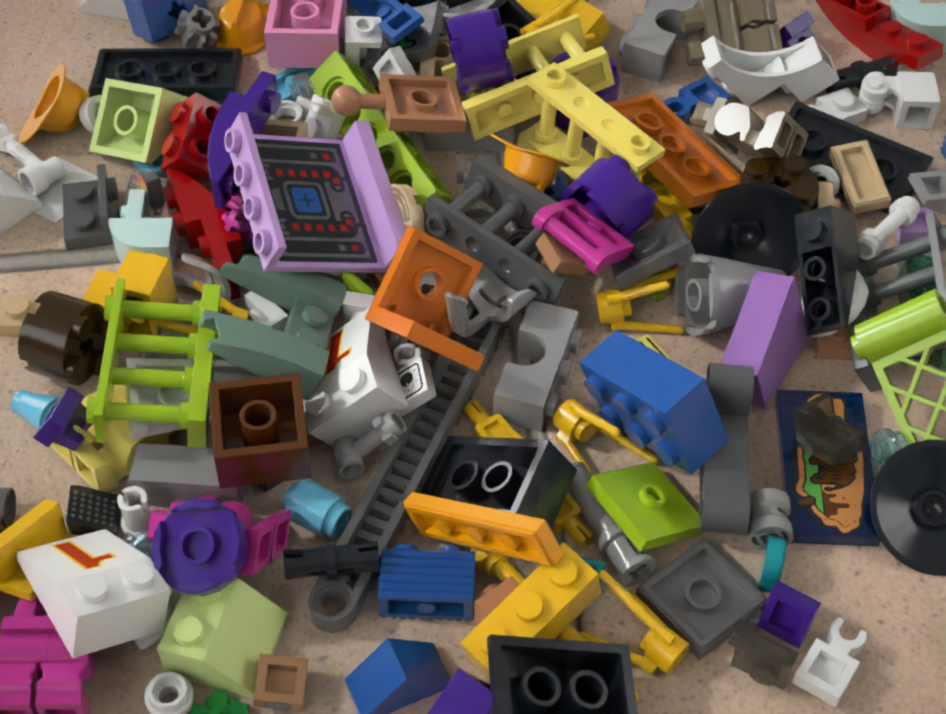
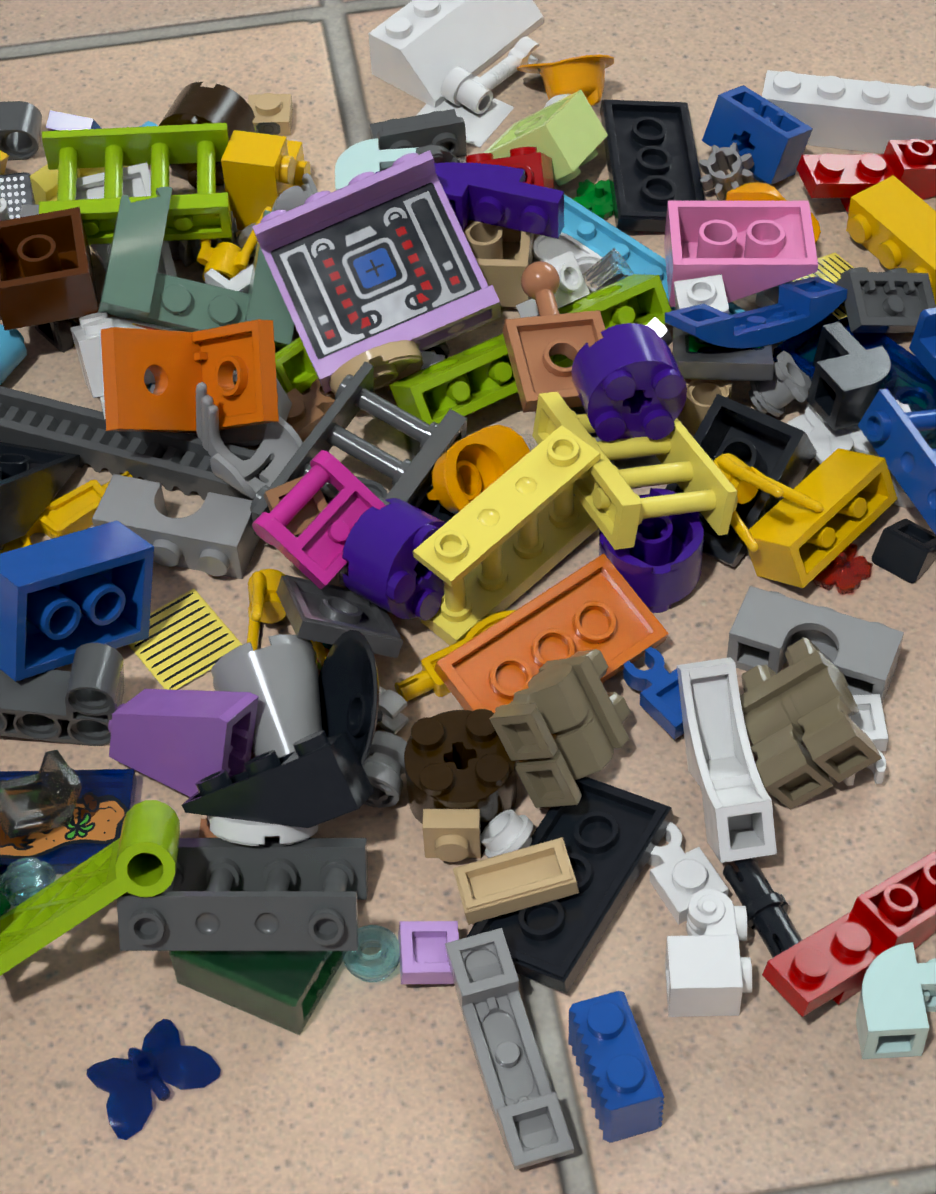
camera: 90 degrees right, 0 degrees up
(350, 451) = (64, 382): light grey bar -> none
(797, 30) = (846, 820): tile -> none
(901, 213) = (345, 856): white bar -> none

